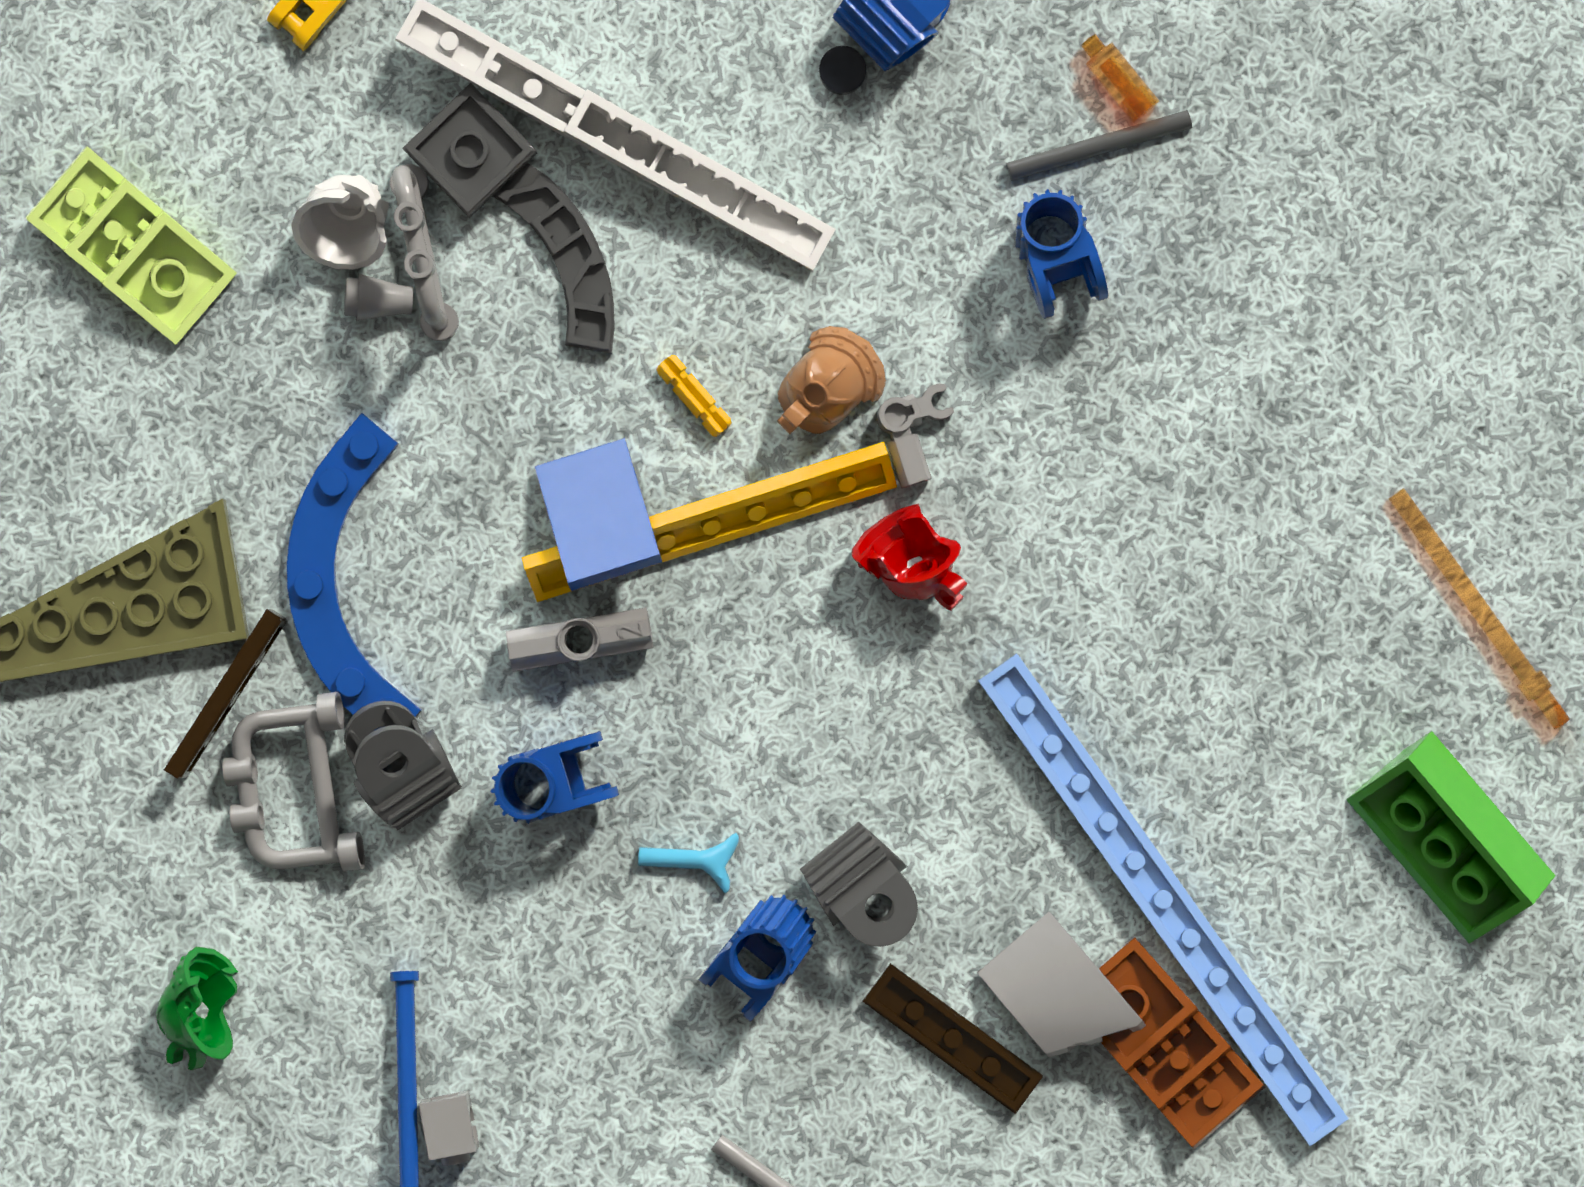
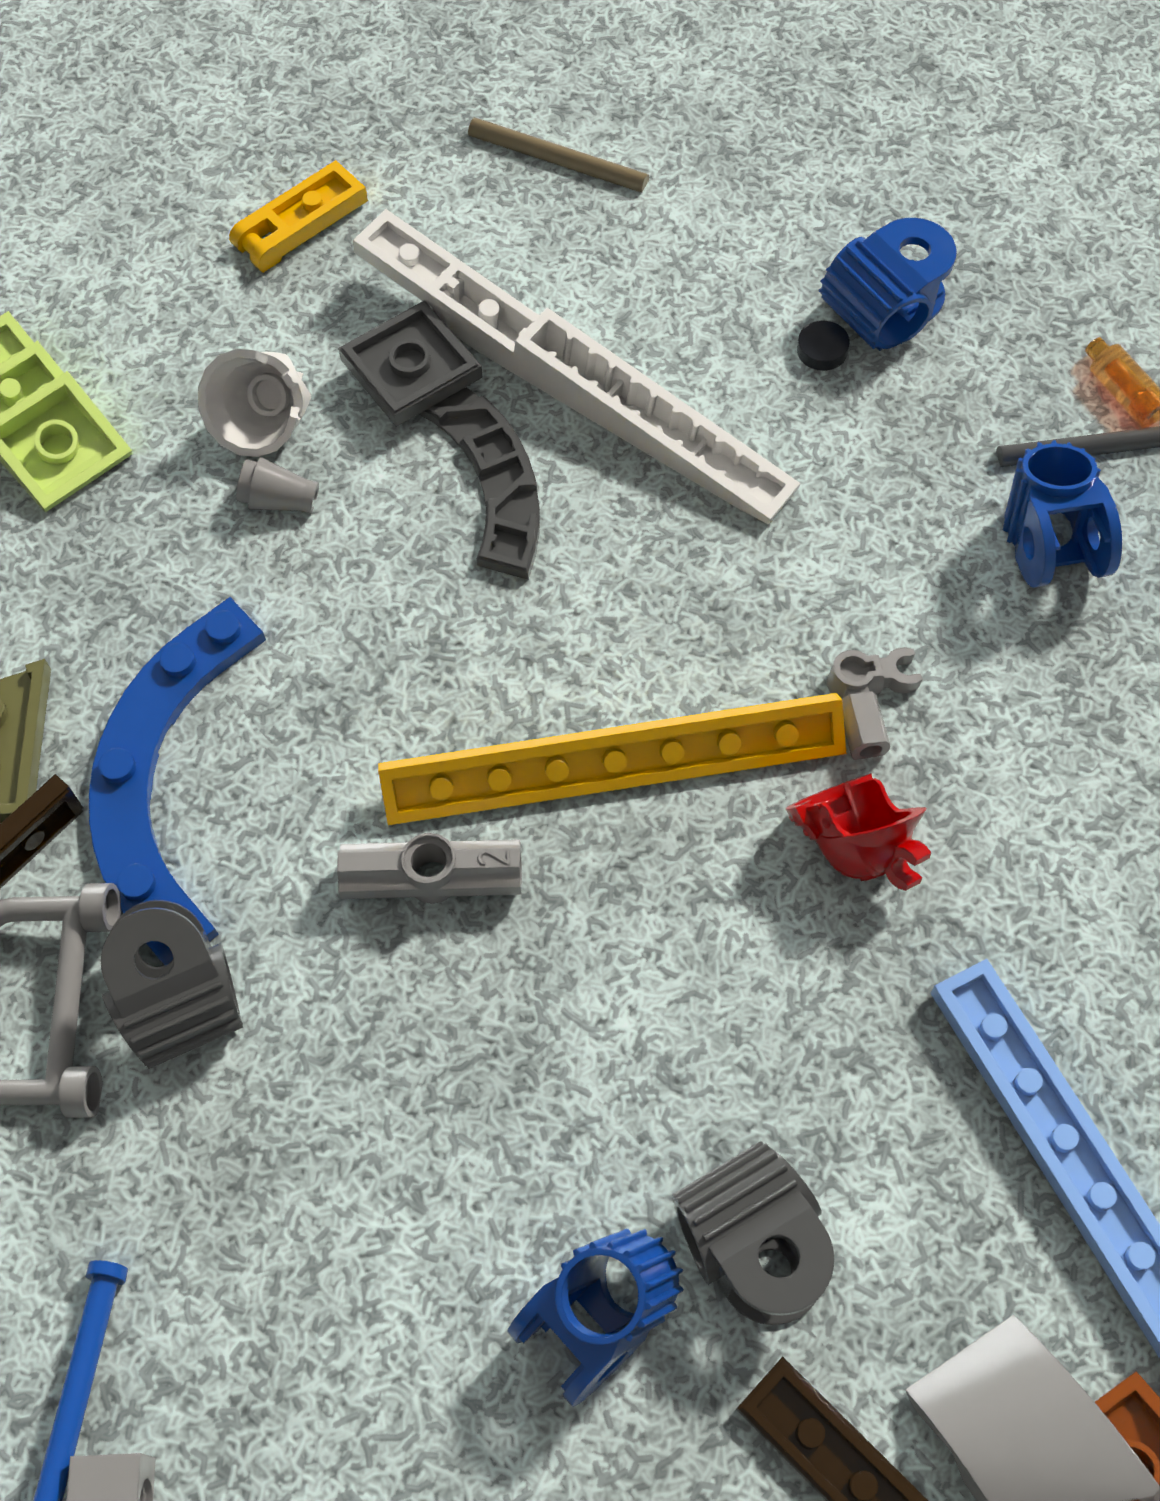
camera: 15 degrees right, 25 degrees down
(410, 186) = (328, 409): light grey bar -> none
(563, 775) = (373, 1036): blue piece -> none
(598, 514) = (480, 726): tile -> none
(694, 395) = (616, 629): yellow axle -> none
(709, 860) = (550, 1175): medium azure piece -> none
(830, 381) = (775, 630): medium nougat helmet -> none

